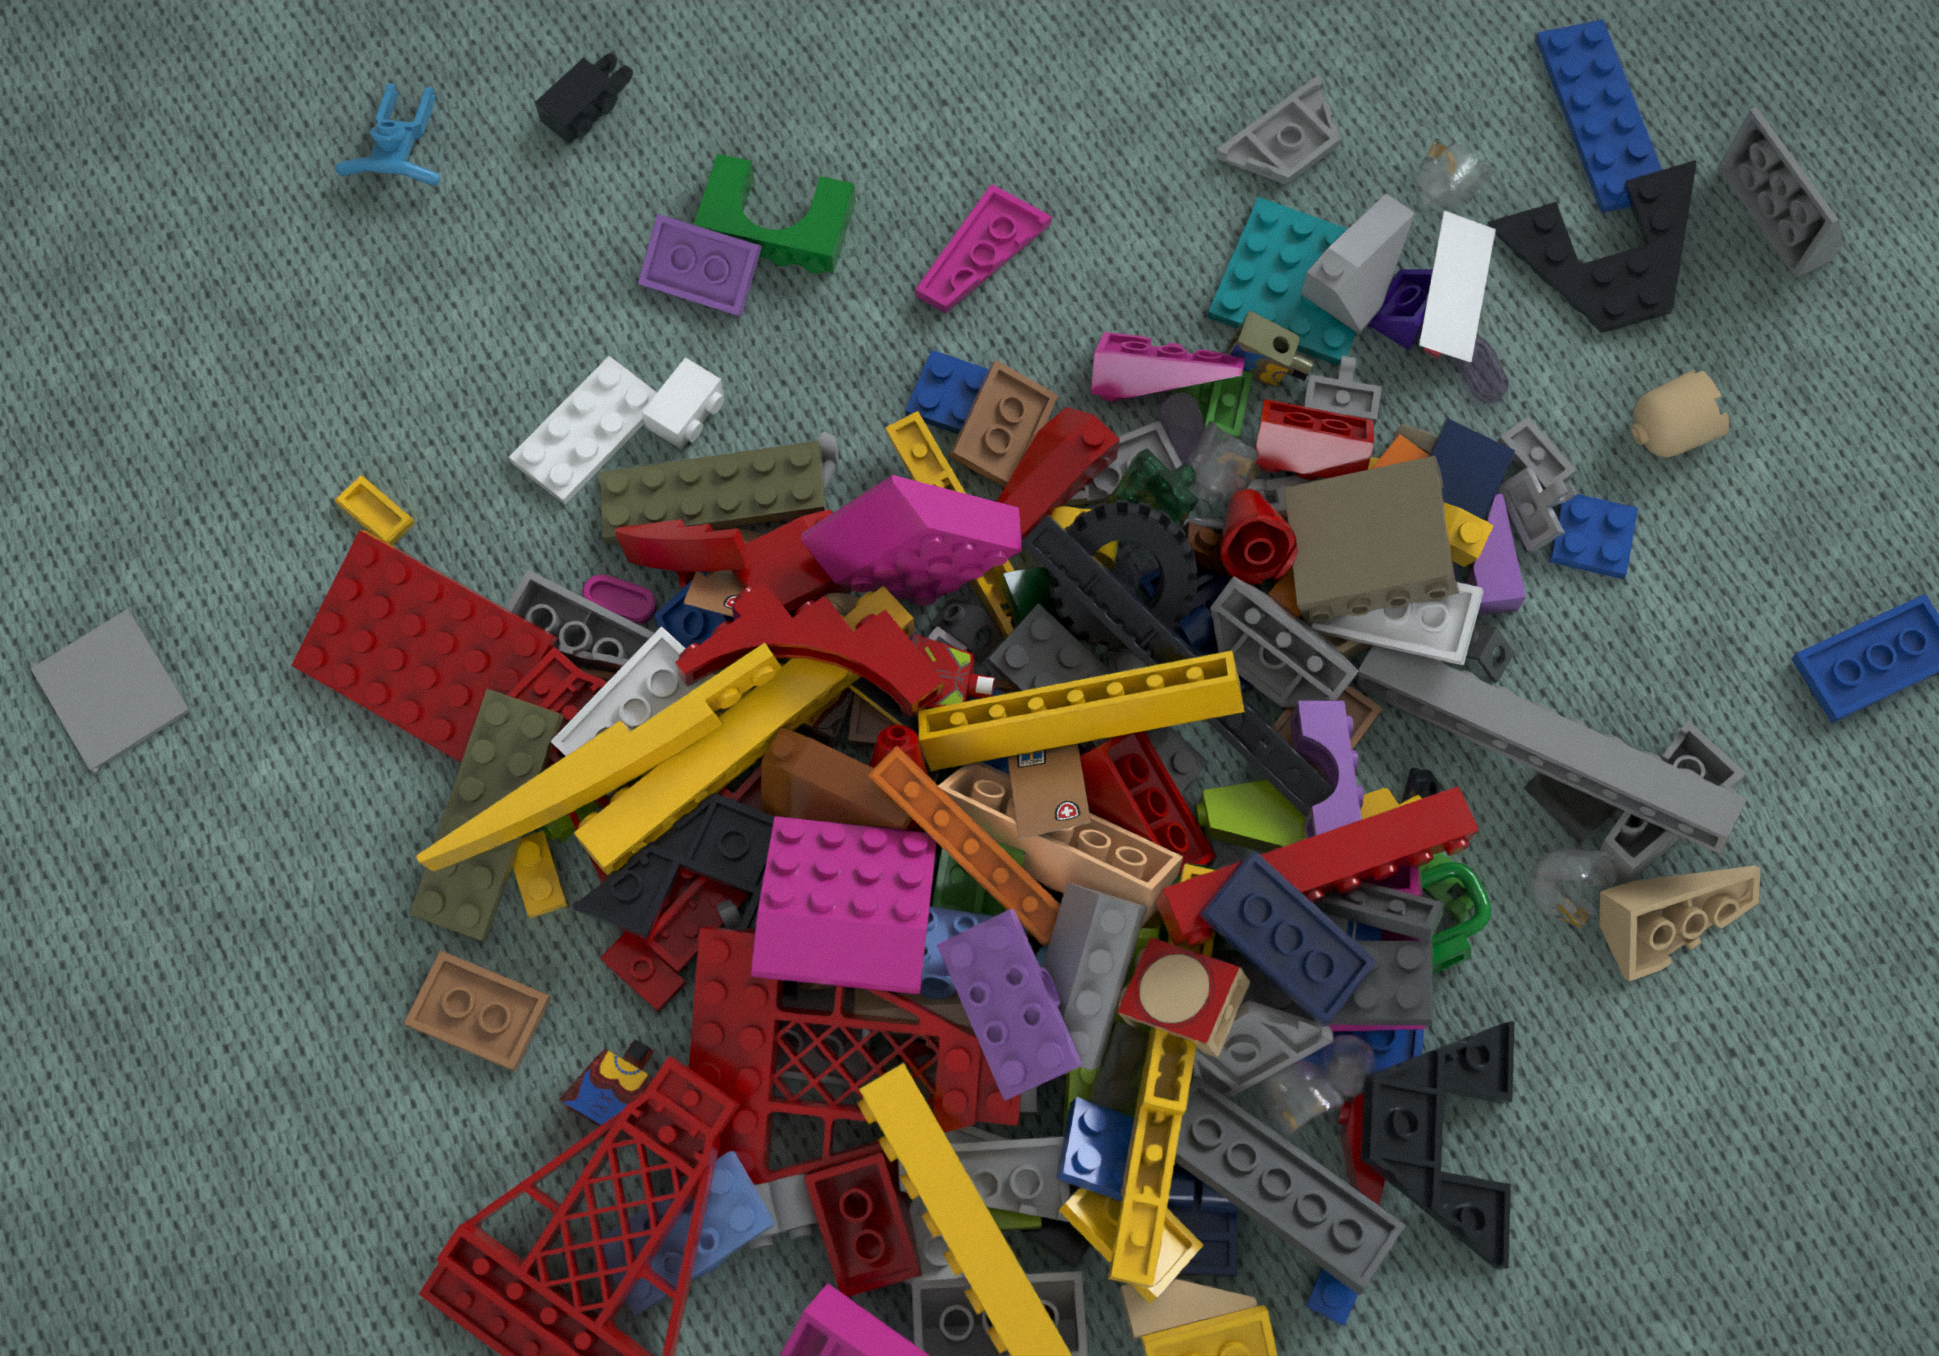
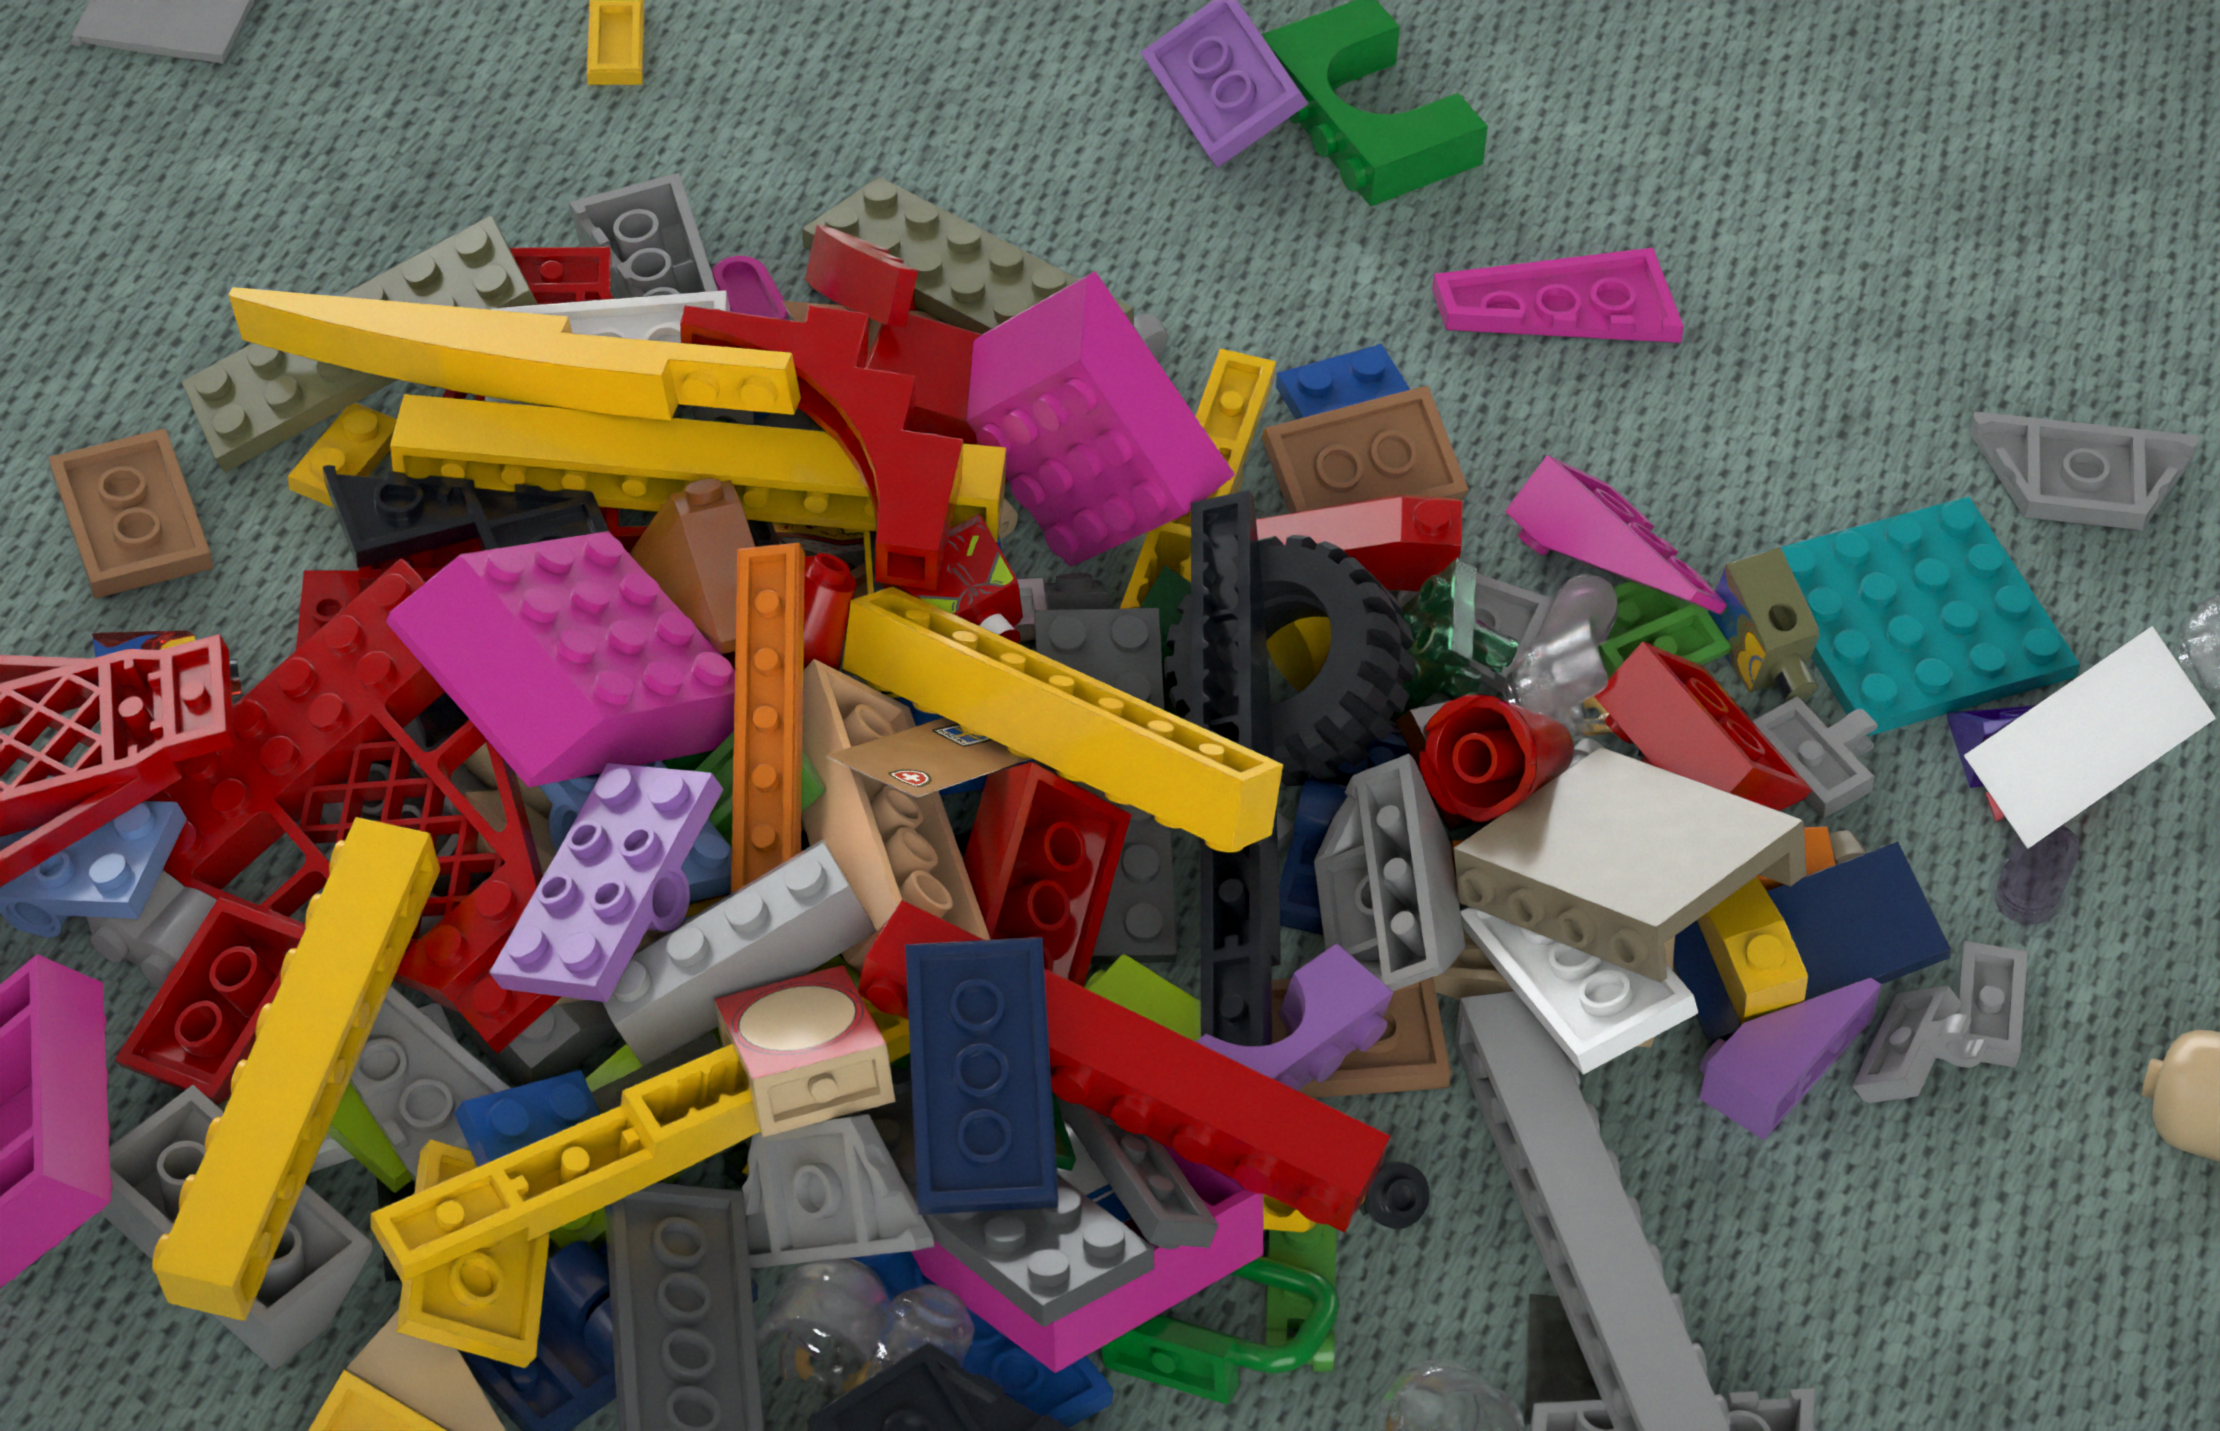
camera: 45 degrees right, 20 degrees down
(416, 644) = (497, 136): red plate -> none
(584, 430) = (918, 136): white plate -> none
(684, 404) = (1044, 183): white brick -> none
(1359, 265) = (1989, 631): light grey wedge -> none
(1481, 646) = (1656, 1107): dark grey bracket -> none
(1595, 536) = (1964, 1144): blue plate -> none

